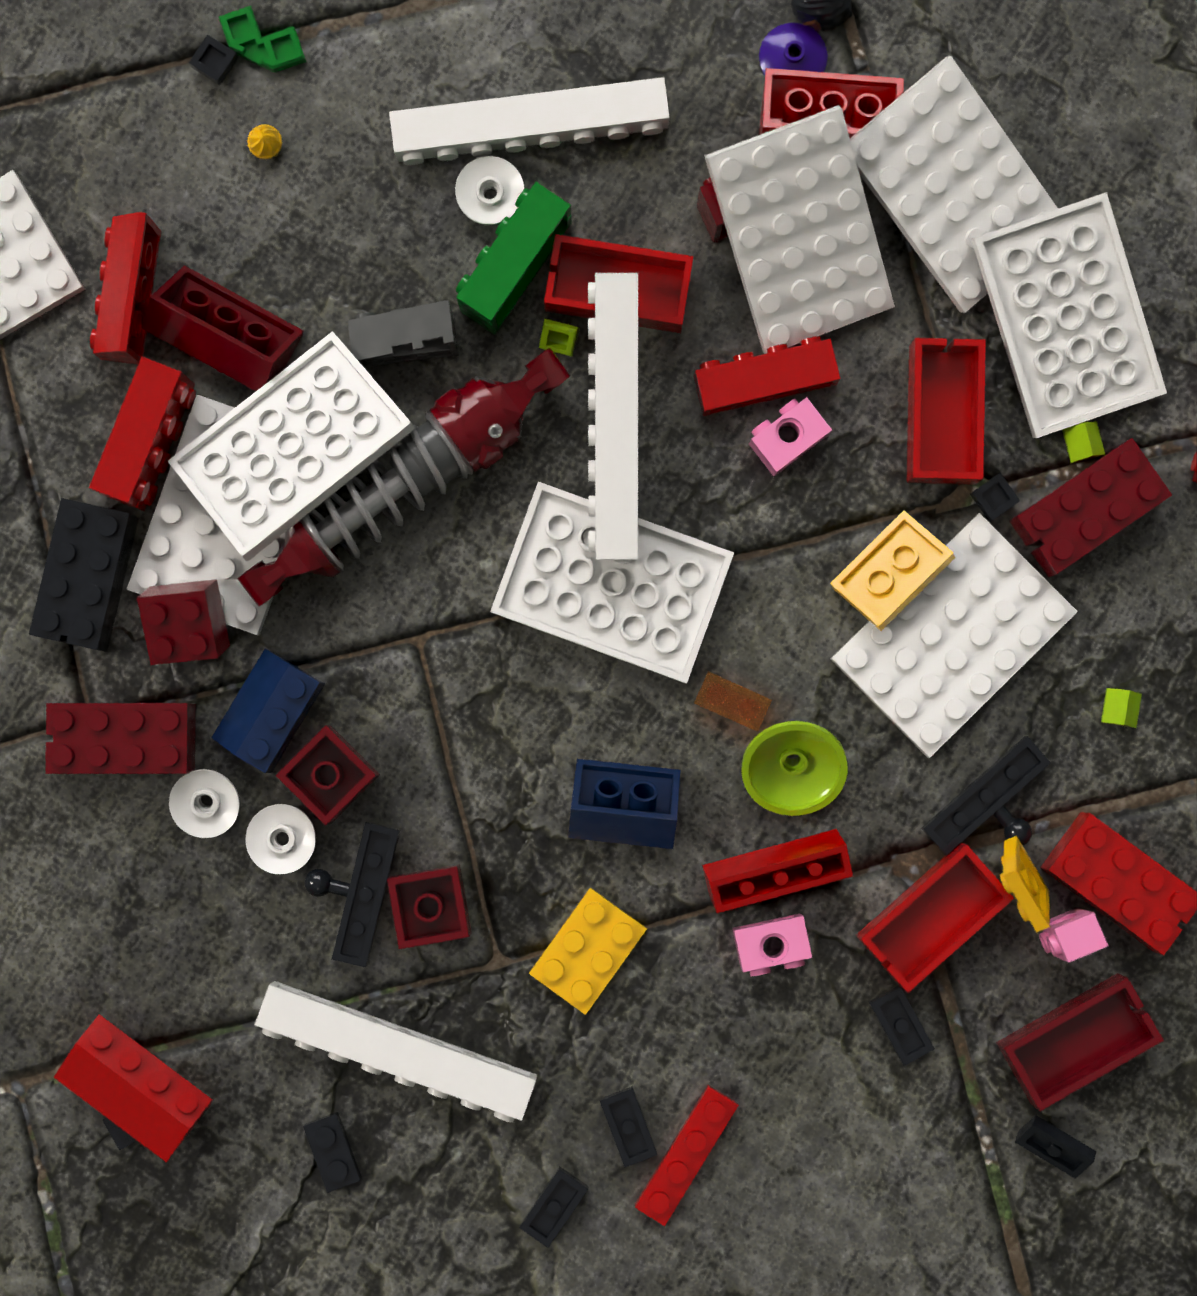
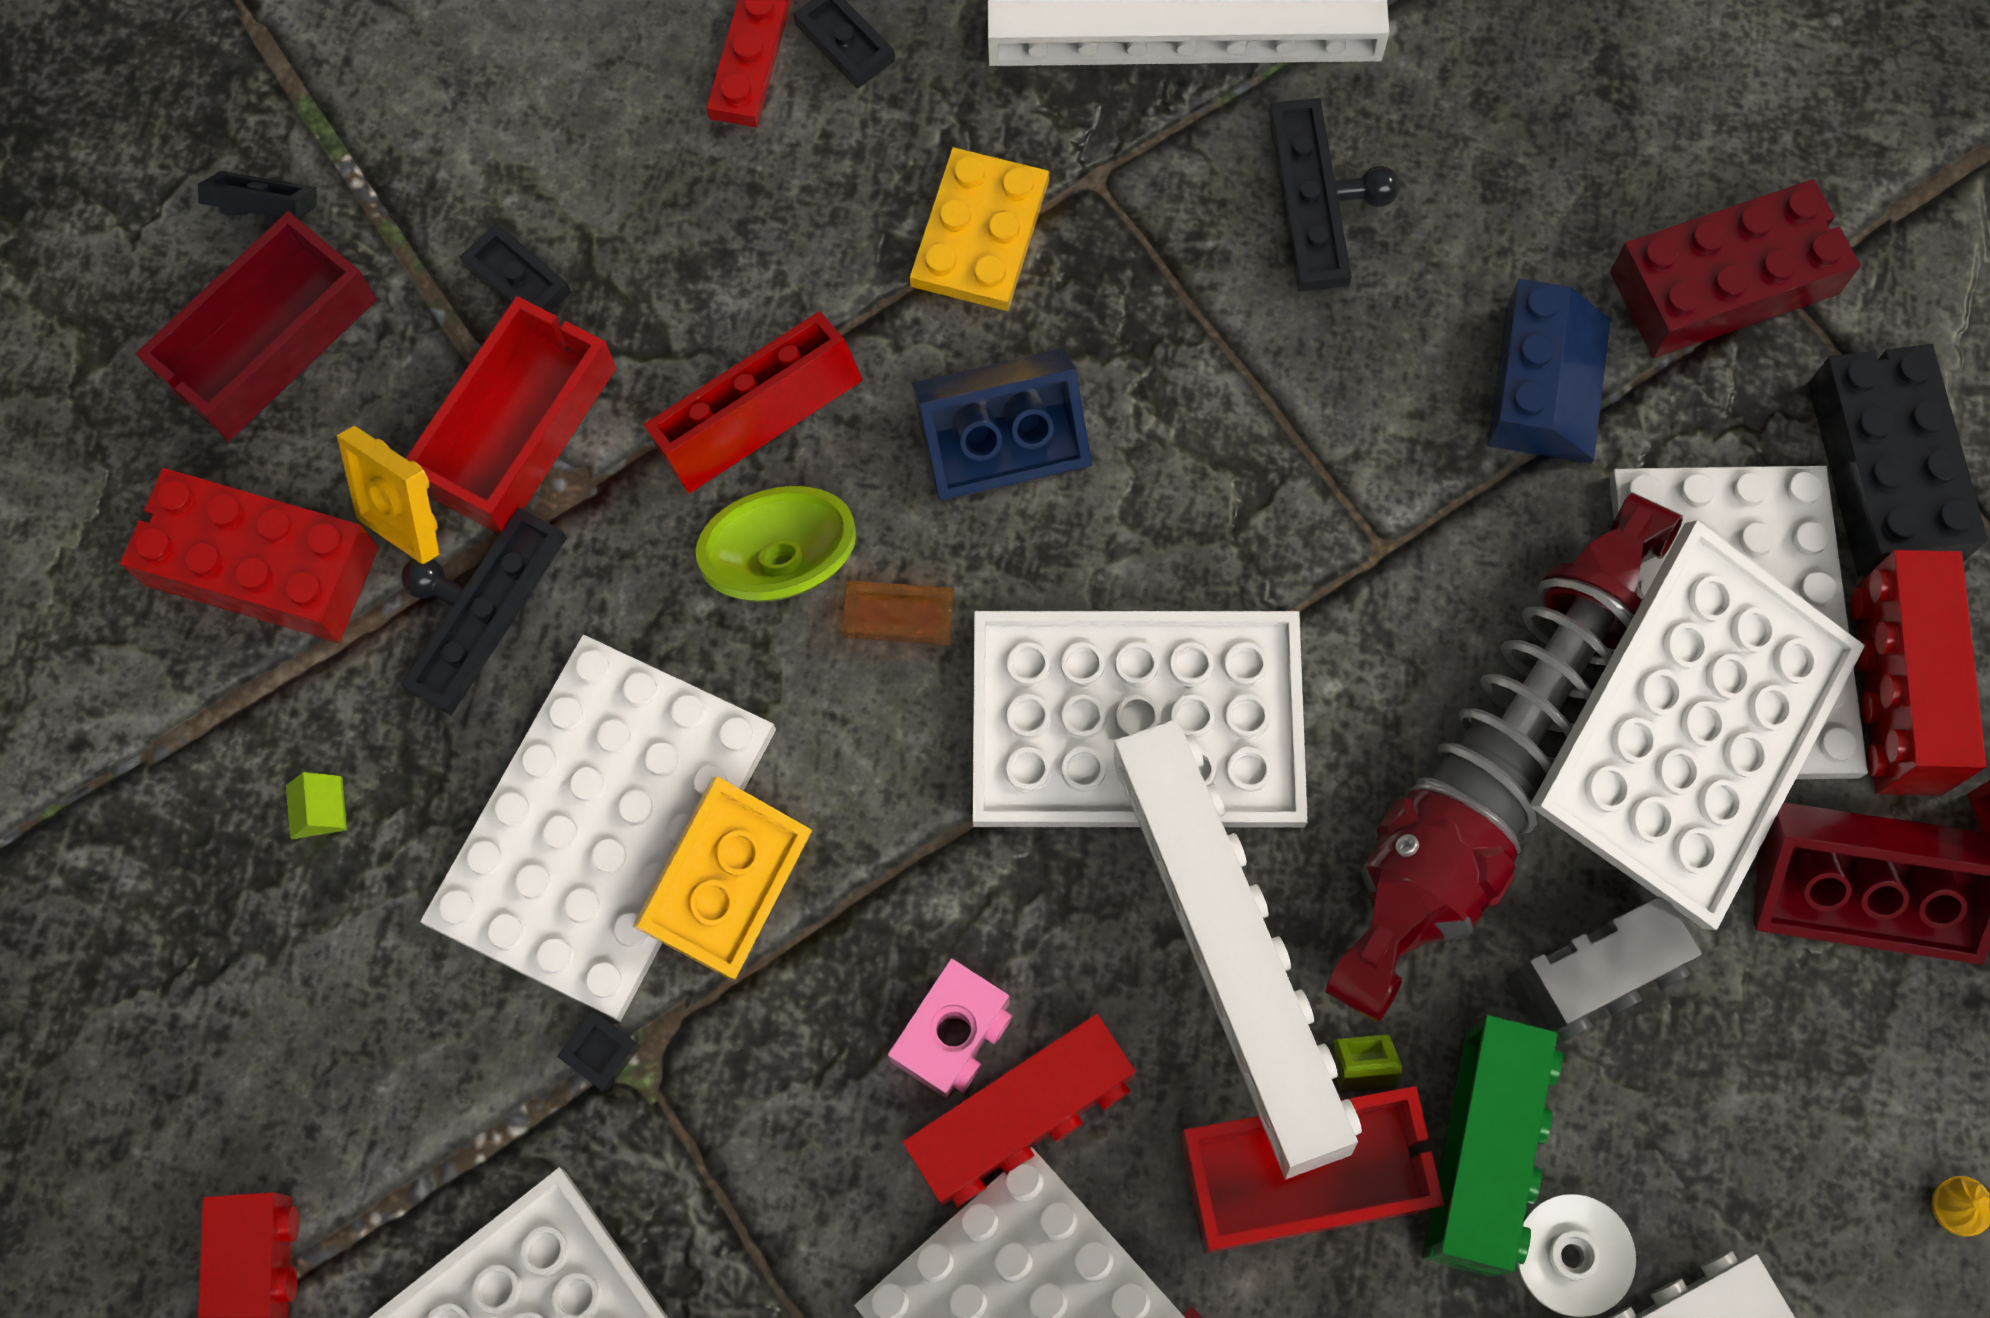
camera: 160 degrees right, 15 degrees down
(183, 622) = (1728, 437): dark red brick -> none
(196, 817) = (1580, 226): white dish -> none
(263, 843) = (1457, 201): white dish -> none
(327, 775) = (1429, 313): dark red brick -> none
(429, 906) = (1218, 198): dark red brick -> none
(751, 938) = (719, 338): bright pink brick -> none
(946, 411) = (716, 1153): red piece -> none
(1073, 935) = (302, 452): bright pink brick -> none
(1083, 441) = (480, 1192): lime slope -> none
(1091, 507) = (440, 1087): dark red piece -> none

